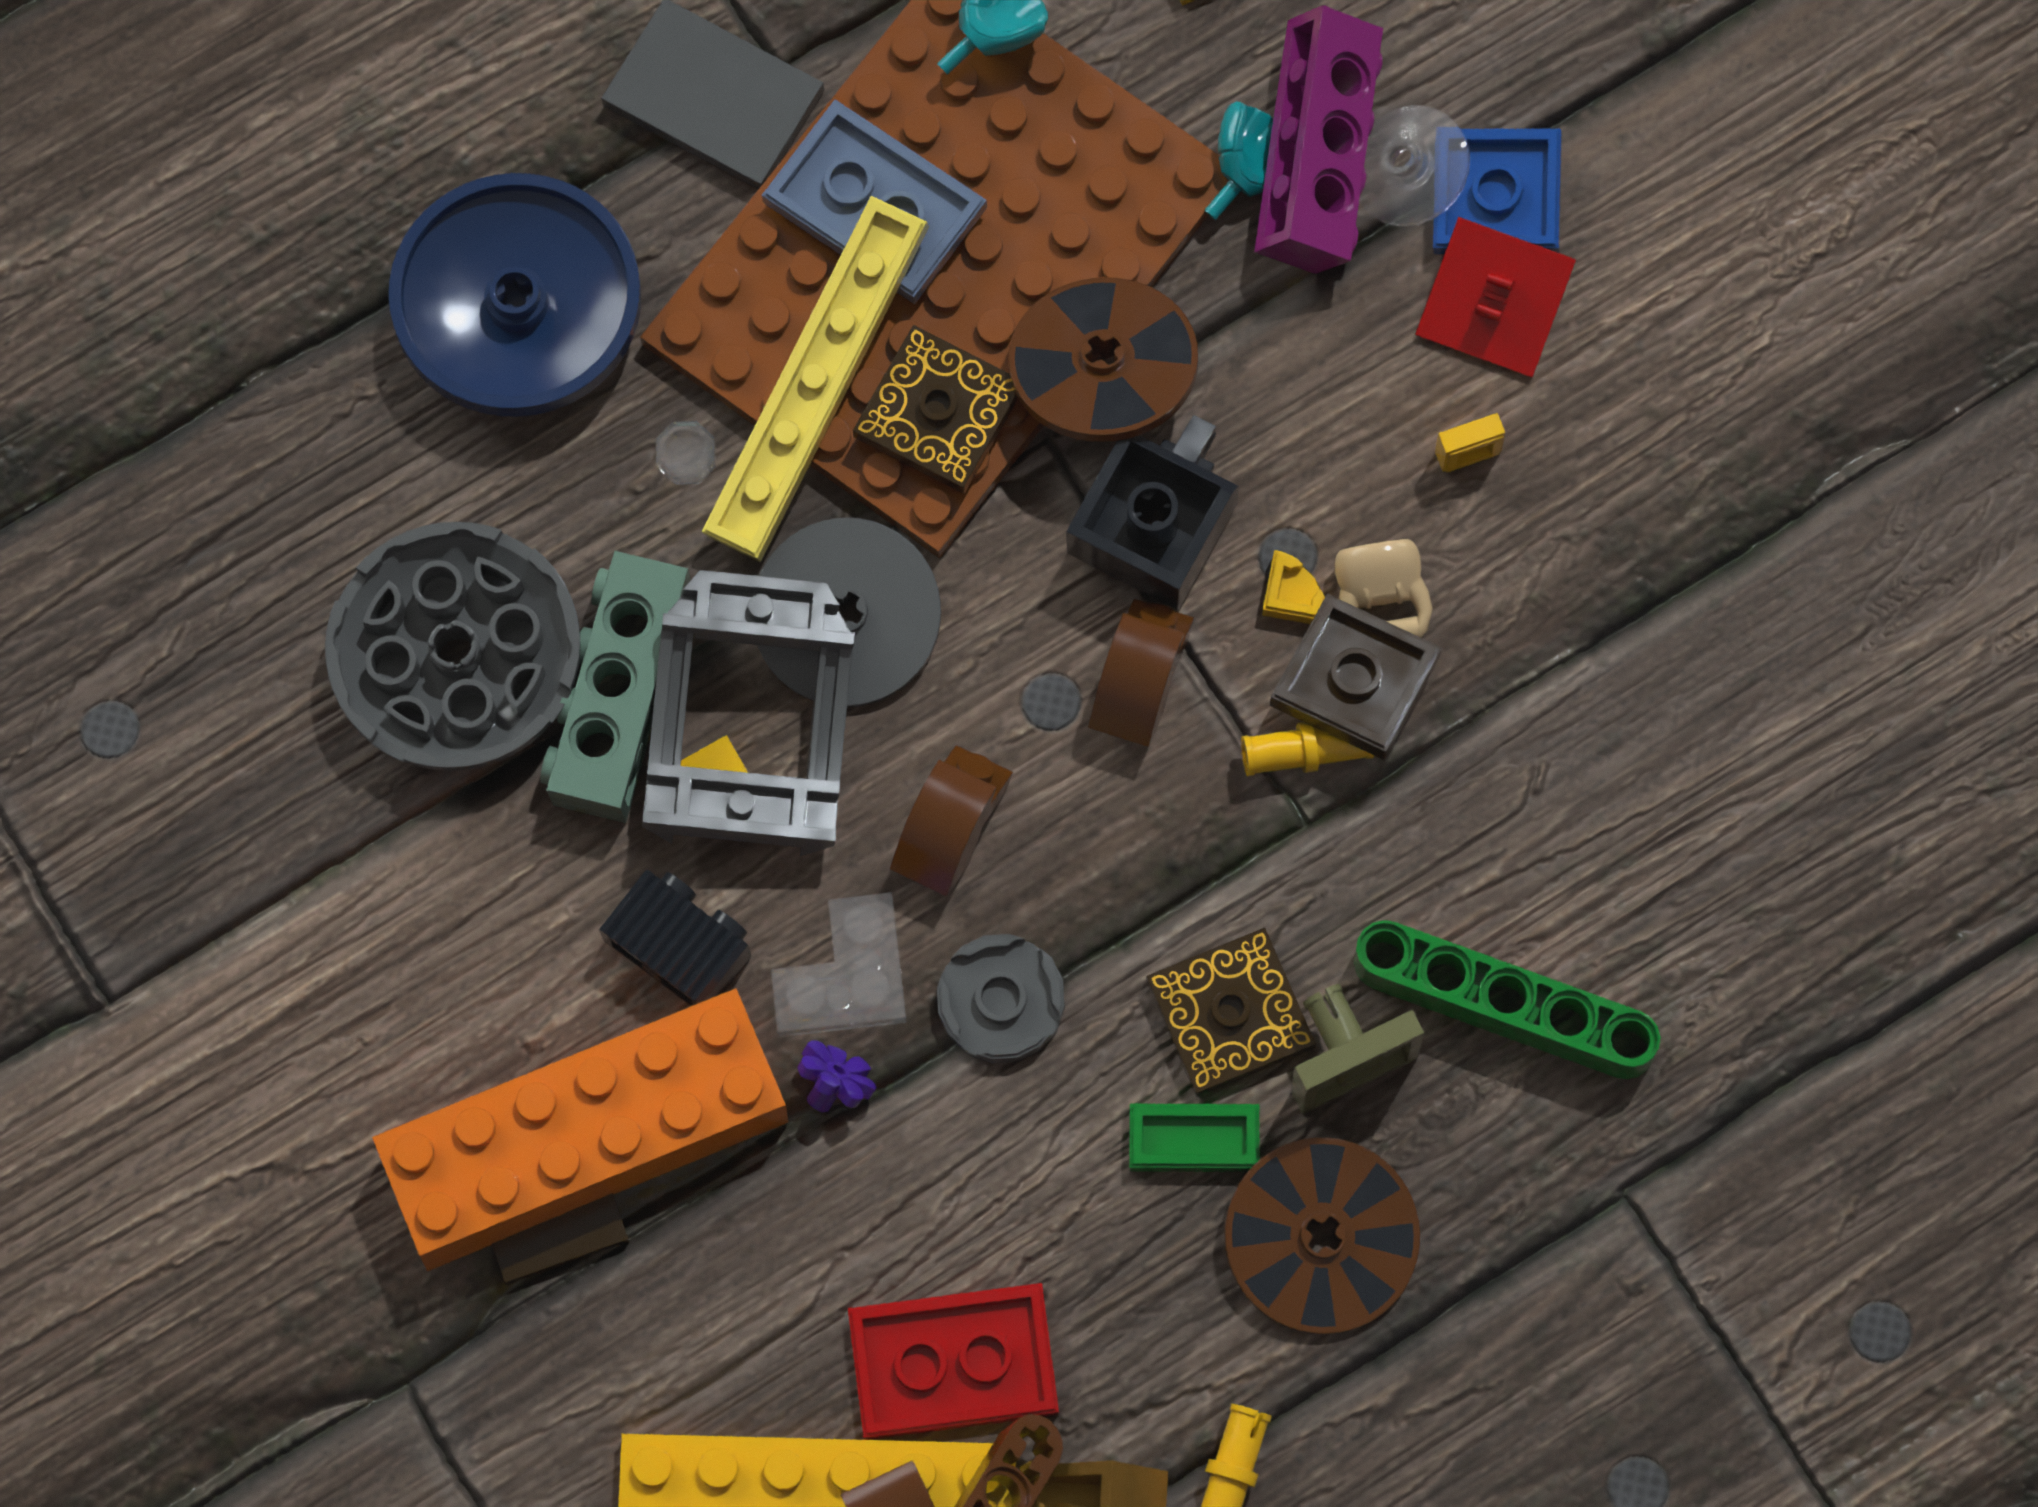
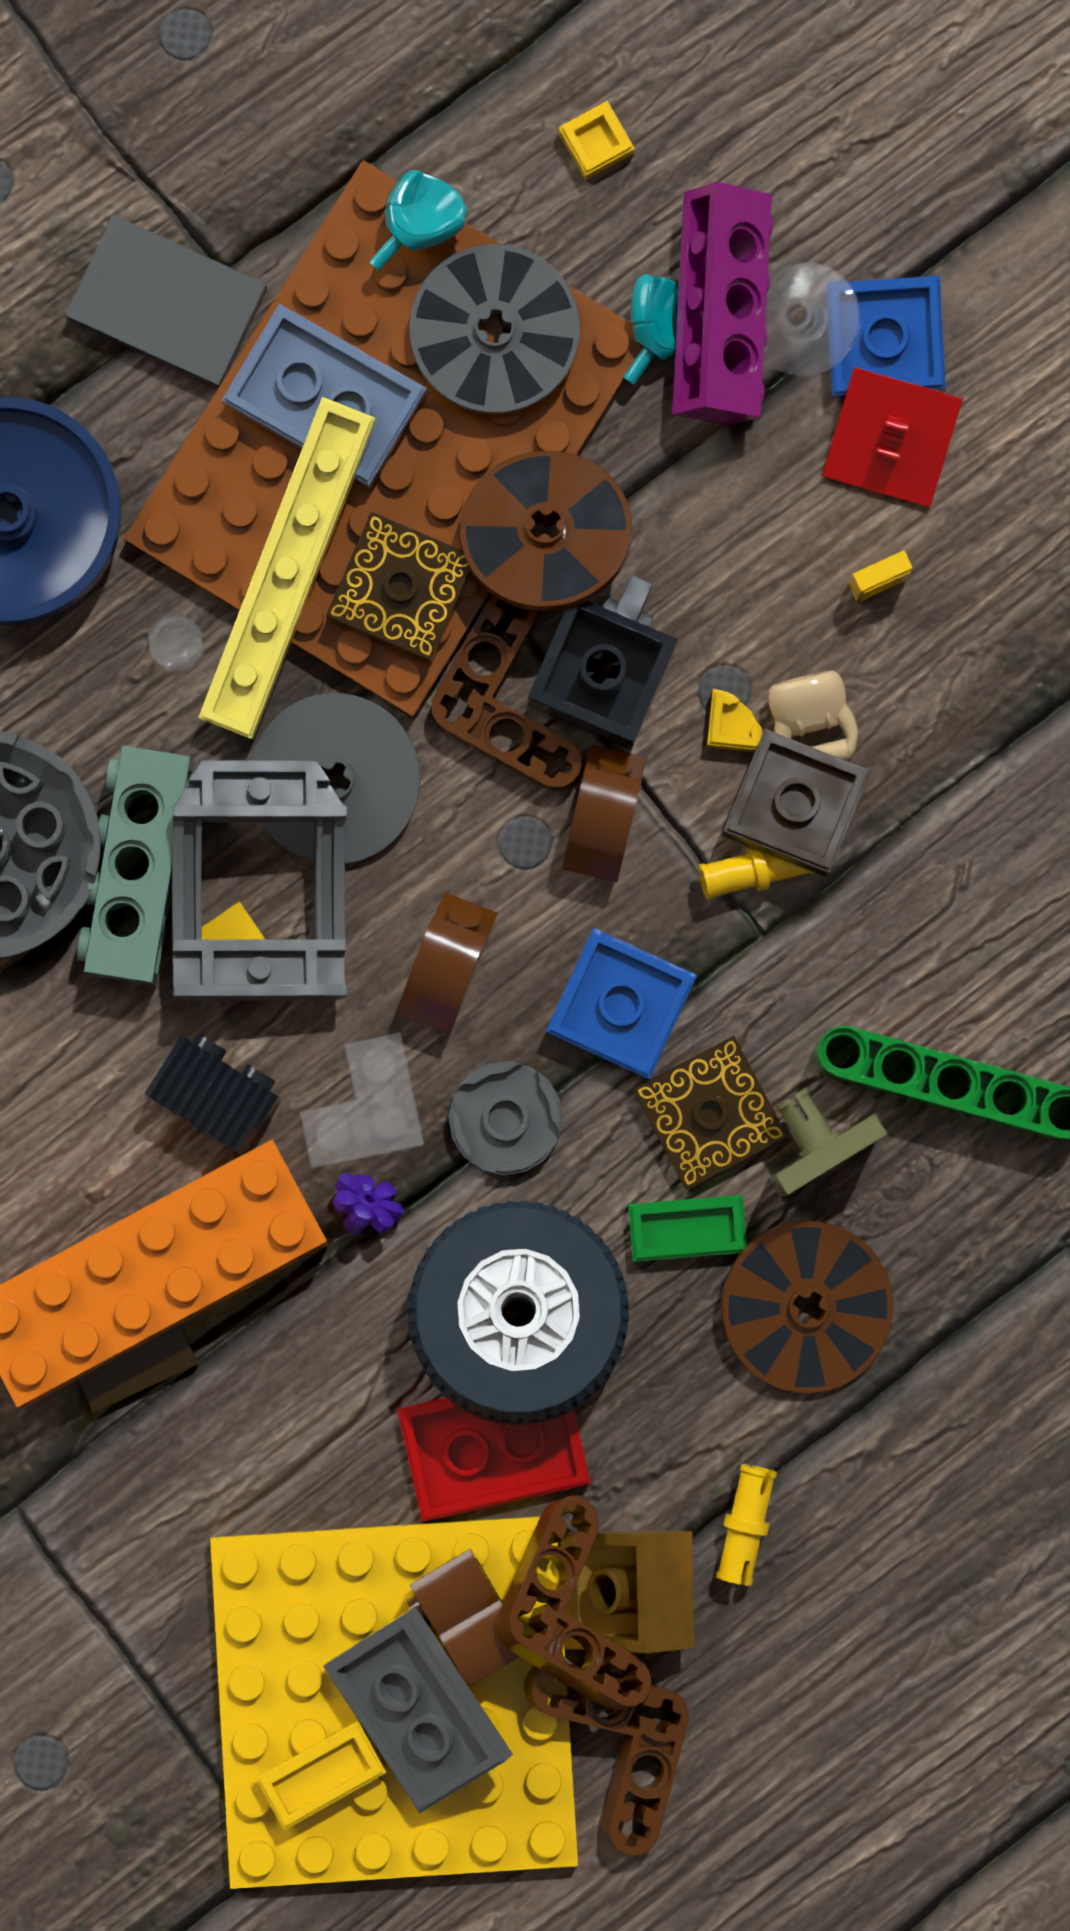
camera: 15 degrees left, 10 degrees up
(983, 1147) = (526, 1256): none -> black wheel
(1024, 554) = (489, 711): none -> reddish brown beam
(1093, 184) = (465, 295): none -> dark grey piece
(1141, 882) = (621, 1003): none -> blue plate

